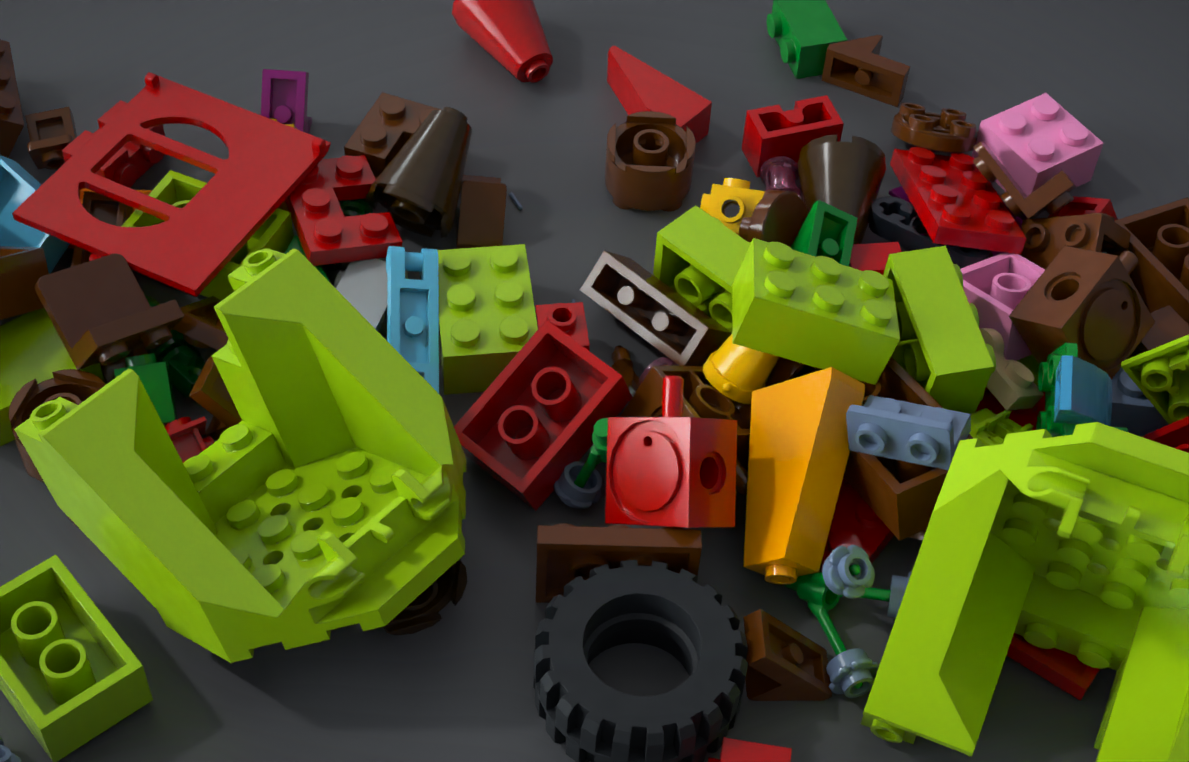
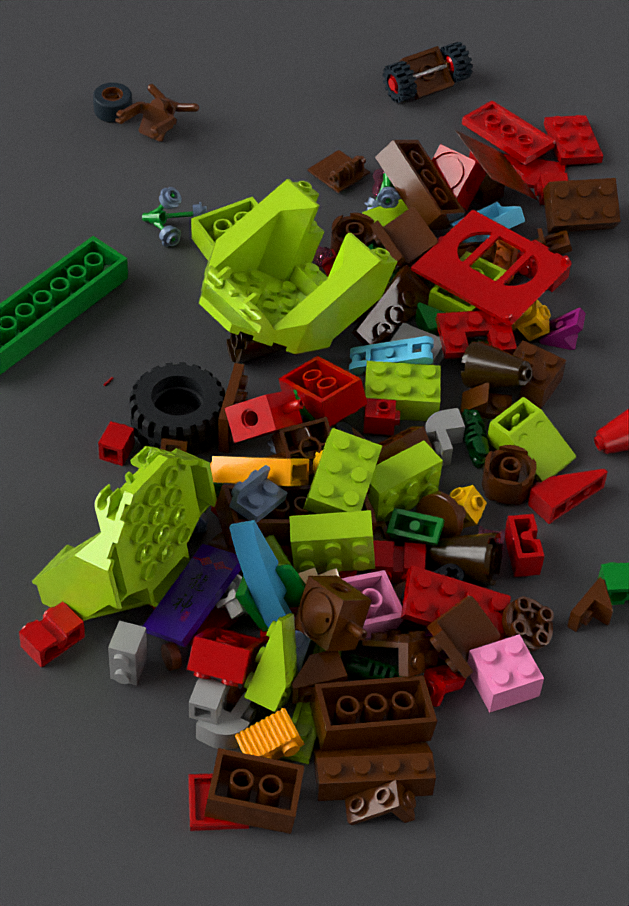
camera: 100 degrees right, 0 degrees up
(551, 150) = (530, 429): none -> lime slope
(562, 259) = (444, 429): none -> light grey brick
(563, 216) = (475, 437): none -> dark green hinge

